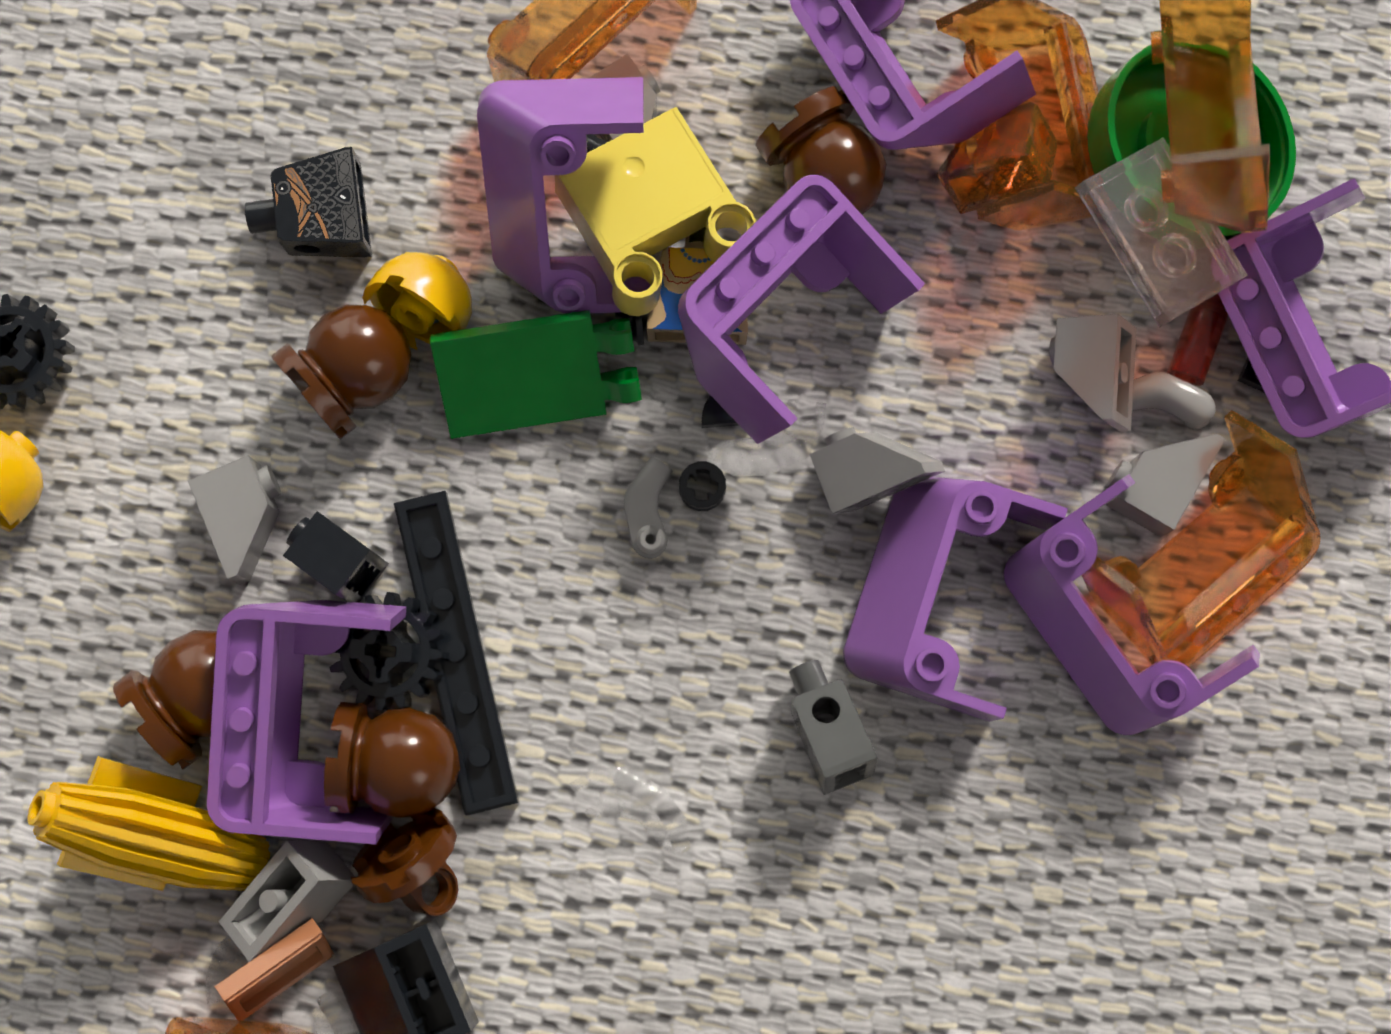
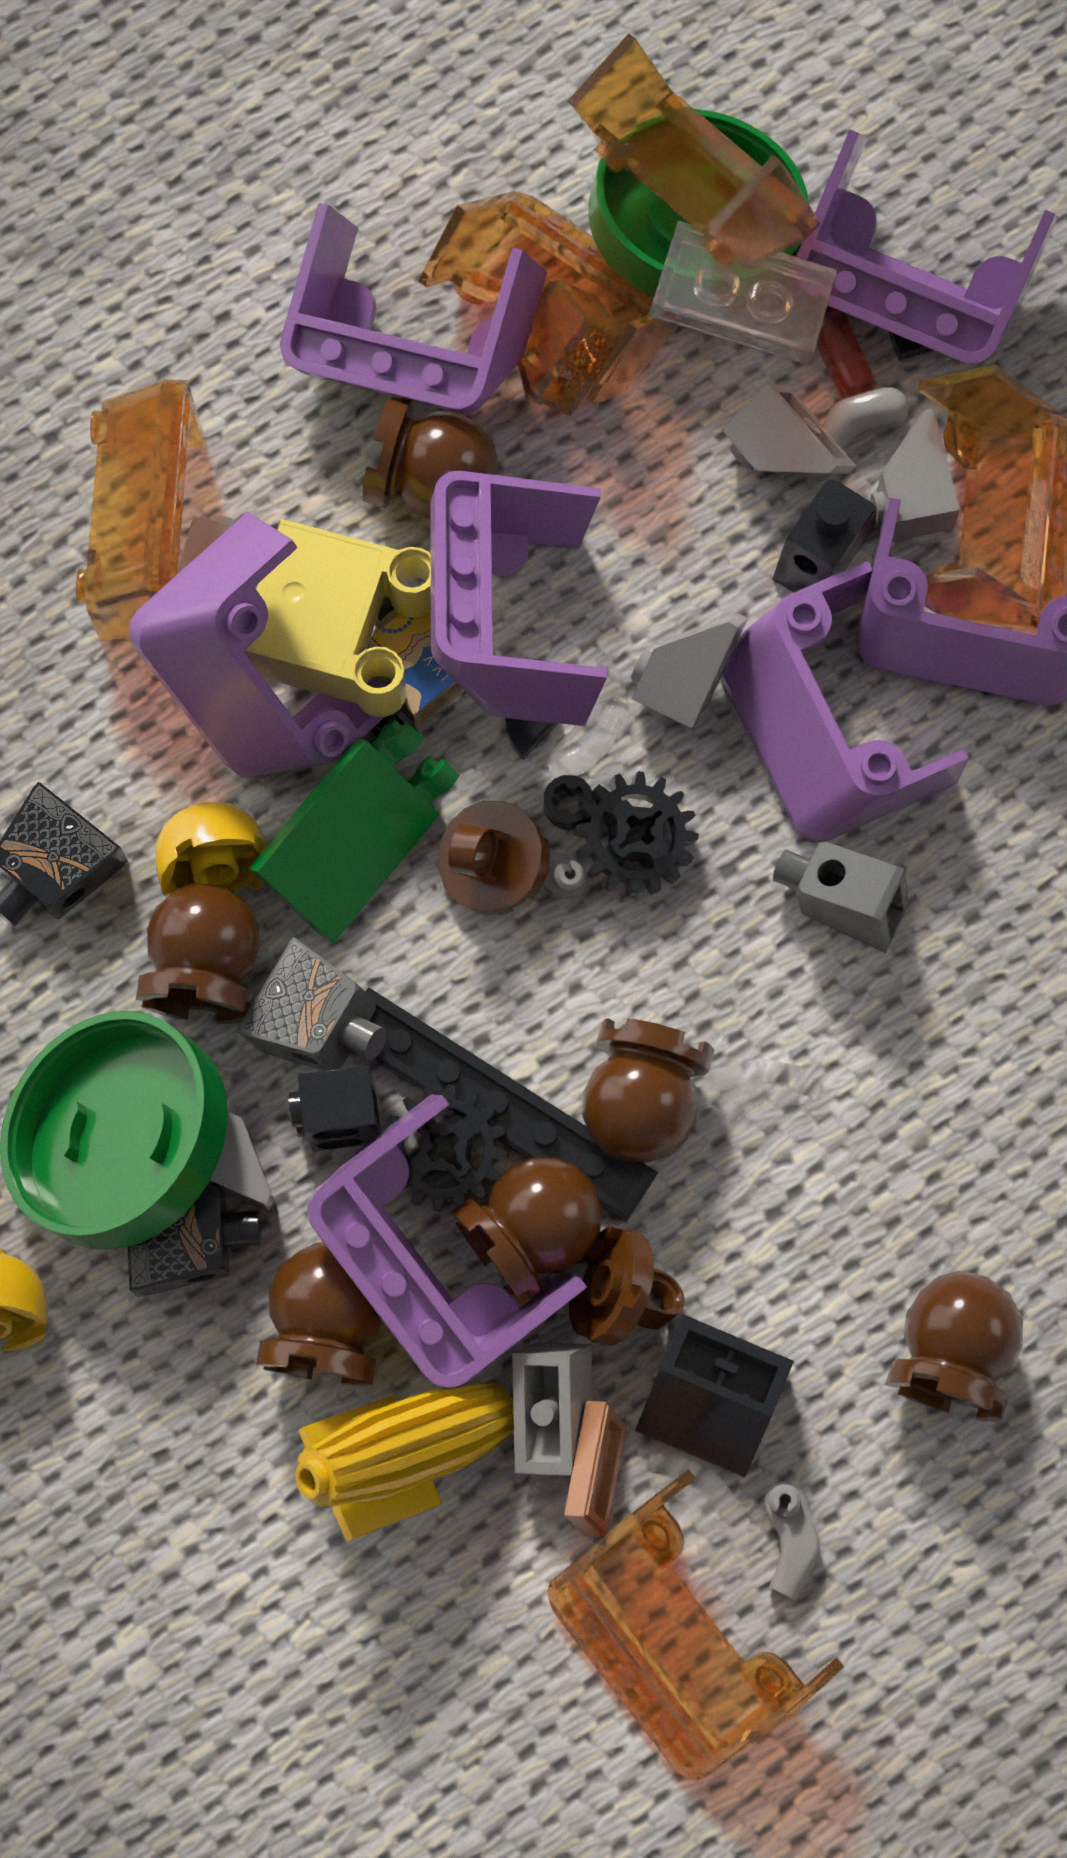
camera: 40 degrees left, 5 degrees down
(160, 545) = (193, 1246): none -> torso
(172, 435) = (113, 1130): none -> green brick
(387, 474) = (312, 1013): none -> torso
(549, 742) = (643, 1095): none -> reddish brown tile
(611, 478) = (493, 857): none -> reddish brown tile
(724, 577) = (651, 849): none -> black gear
(1057, 462) = (827, 534): none -> black torso

